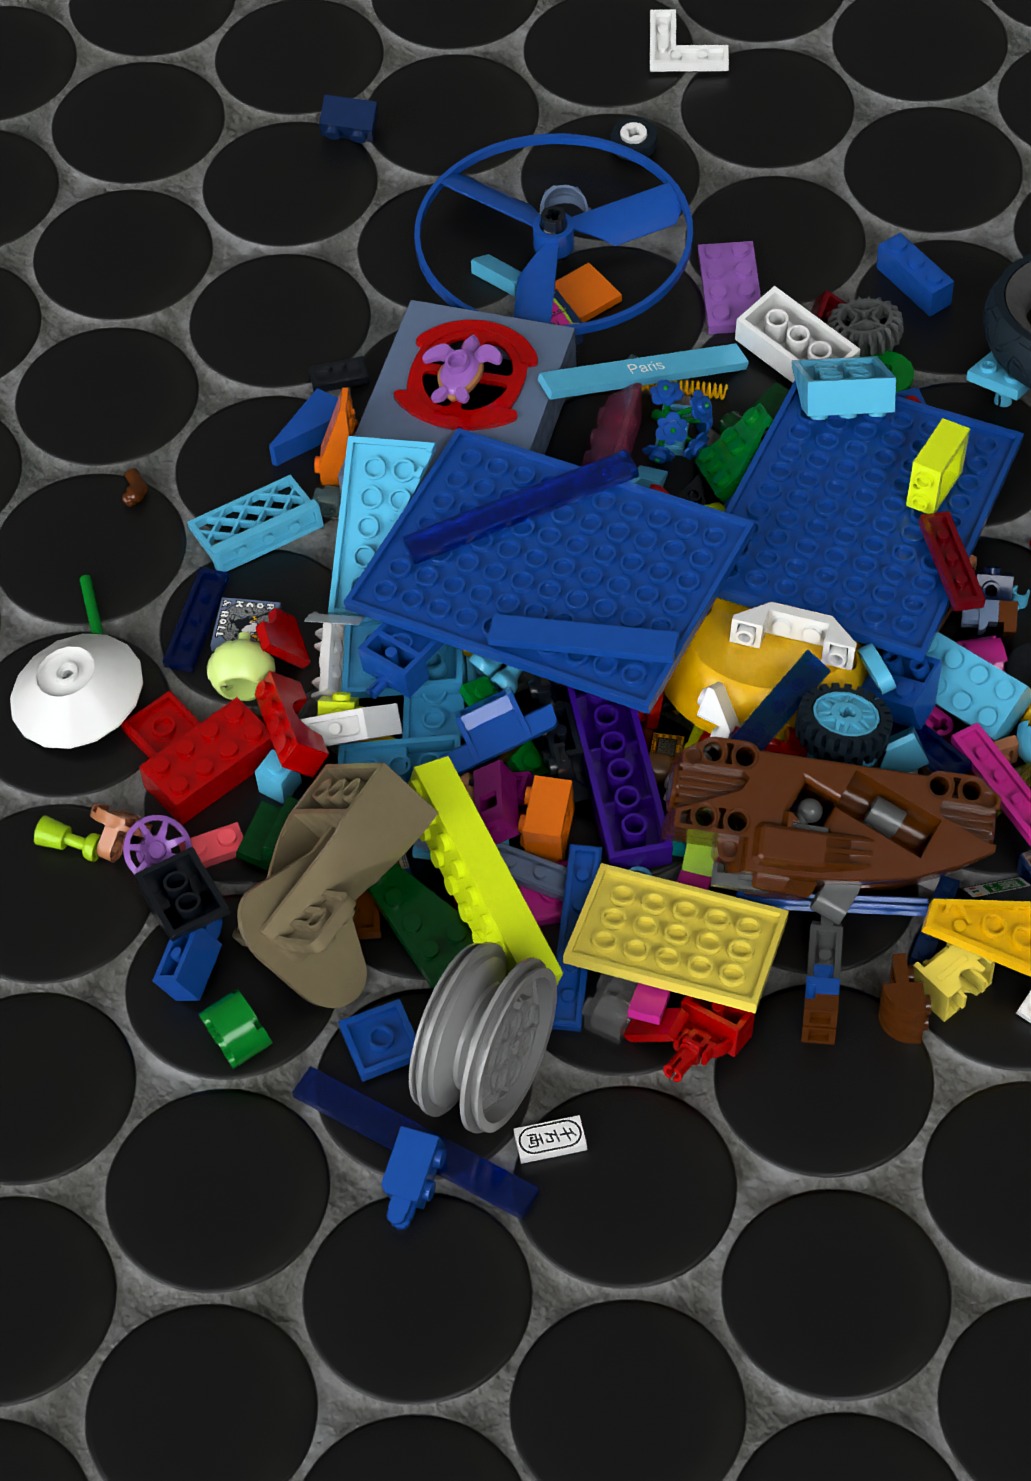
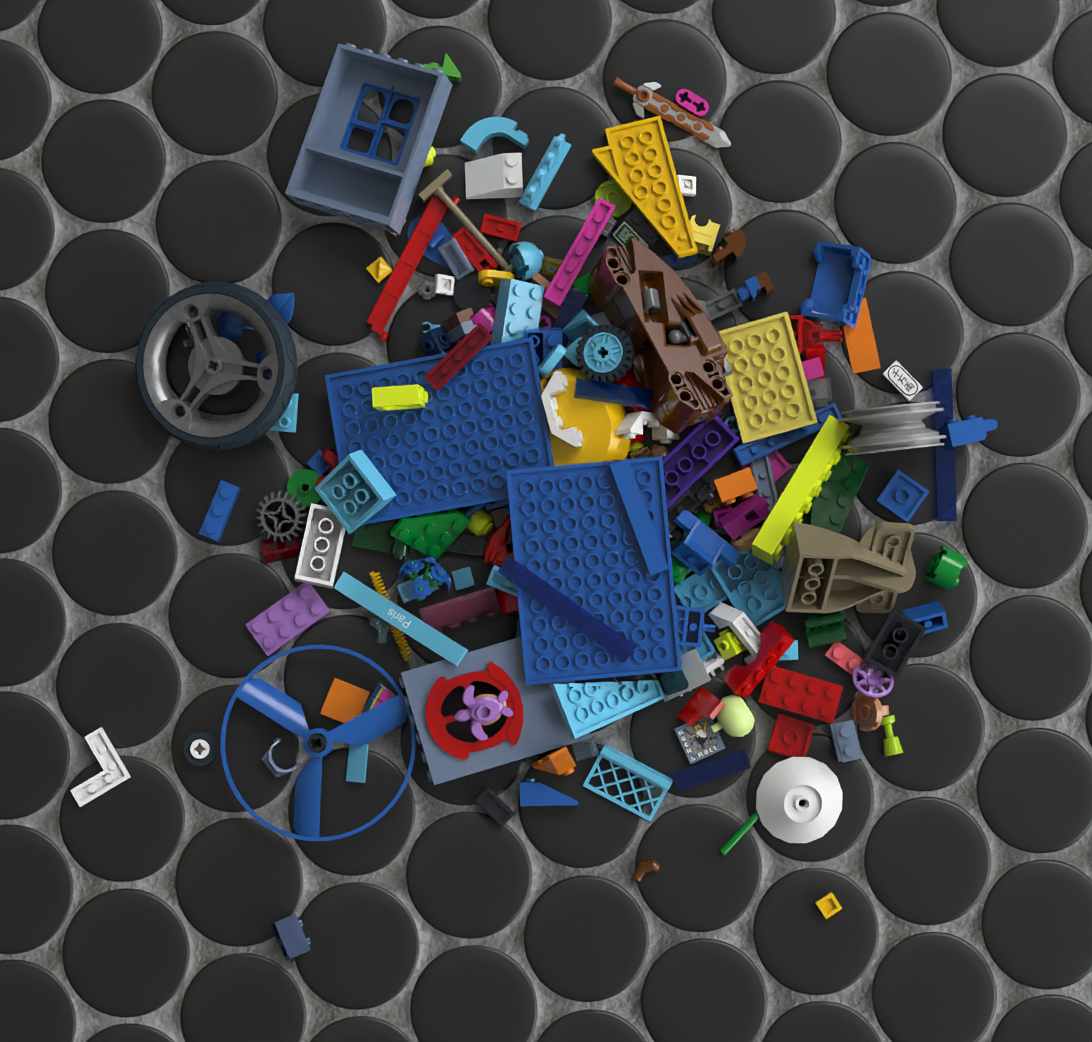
camera: 130 degrees left, 30 degrees up
(105, 784) = (845, 741): none -> sand blue window
(659, 1123) = (862, 343): none -> orange sticker
(748, 1126) = (837, 284): none -> blue windscreen

